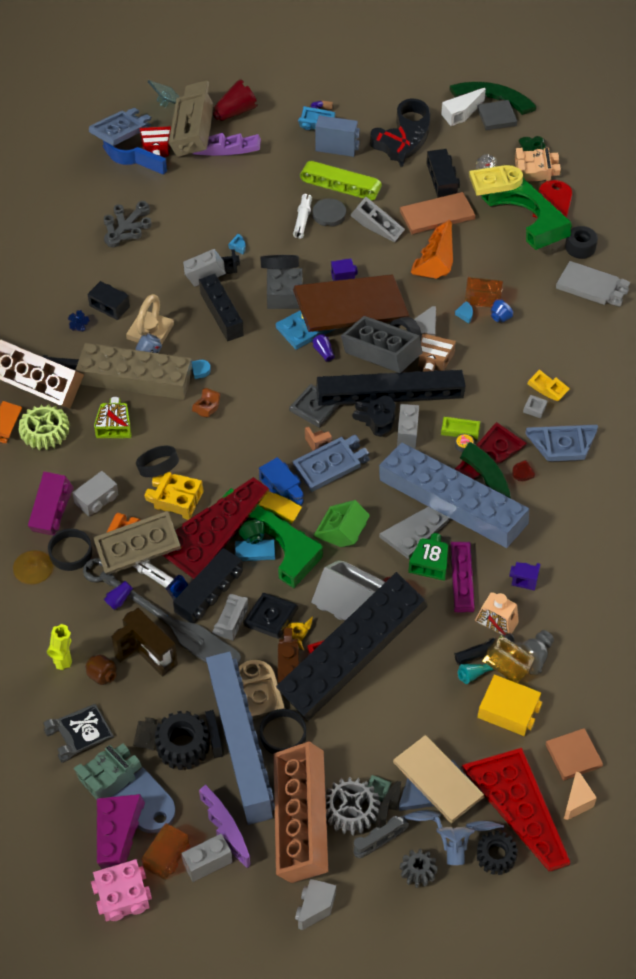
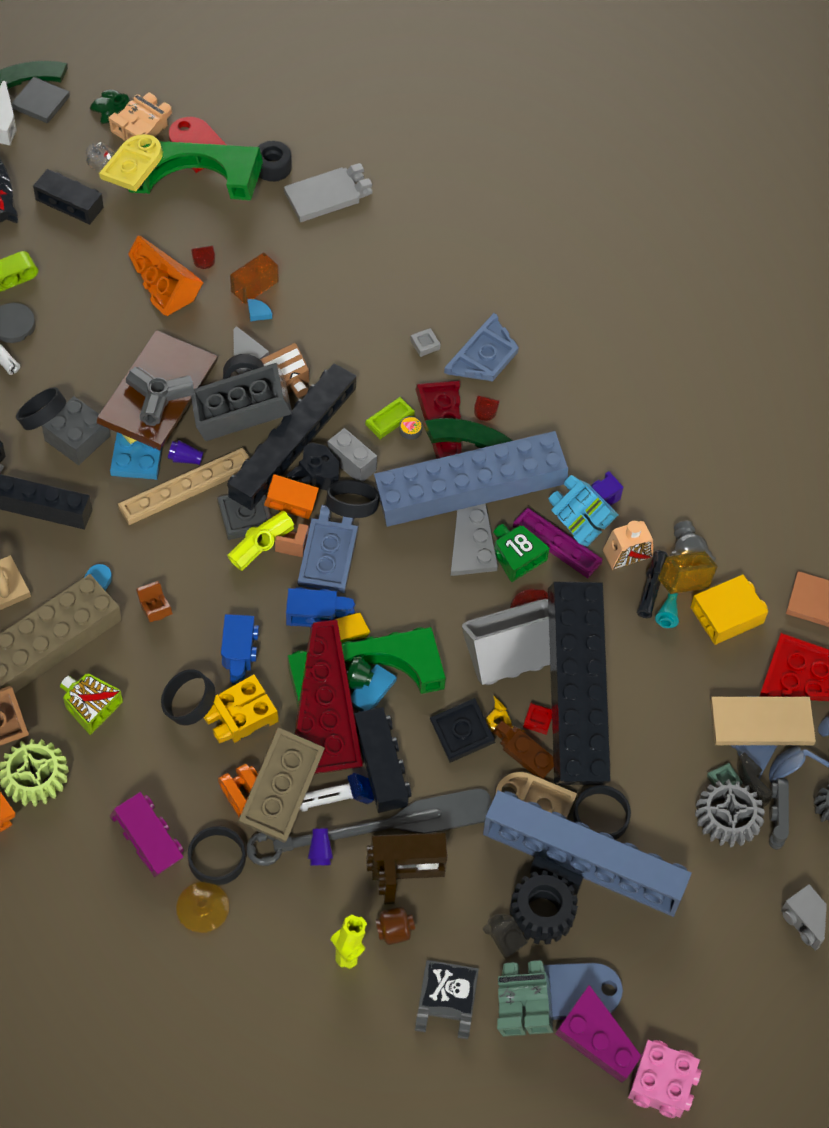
camera: 55 degrees left, 5 degrees up
(95, 493) = (170, 783): light grey brick -> none
(149, 343) = (27, 599): sand blue head -> none
(165, 851) = (653, 1008): clear orange brick -> none
(207, 857) = (689, 976): light grey brick -> none
(218, 462) = (237, 645): none -> blue hinge
(226, 825) = (676, 937): medium lavender slope -> none
(231, 617) = (434, 766): light grey hinge -> none
(286, 422) = (249, 548): none -> neon yellow piece
(297, 362) = (182, 487): none -> tan tile
(300, 813) = (712, 858): nougat brick -> none
(341, 300) = (157, 392): none -> dark grey piece
(342, 524) = (413, 593): bright green slope -> none
(343, 270) = (106, 367): dark purple brick -> none
(344, 415) = (291, 496): none -> orange hinge
(377, 220) = (68, 292): light grey slope -> none
(377, 435) = (352, 510): none -> black tyre
(434, 212) = (111, 239): nougat tile -> none
(474, 261) = (203, 257): none -> clear red tile
(493, 568) = (576, 504): none -> medium azure hips
(501, 311) = (290, 282): blue cone -> none
(546, 386) = (416, 314): yellow slope -> none

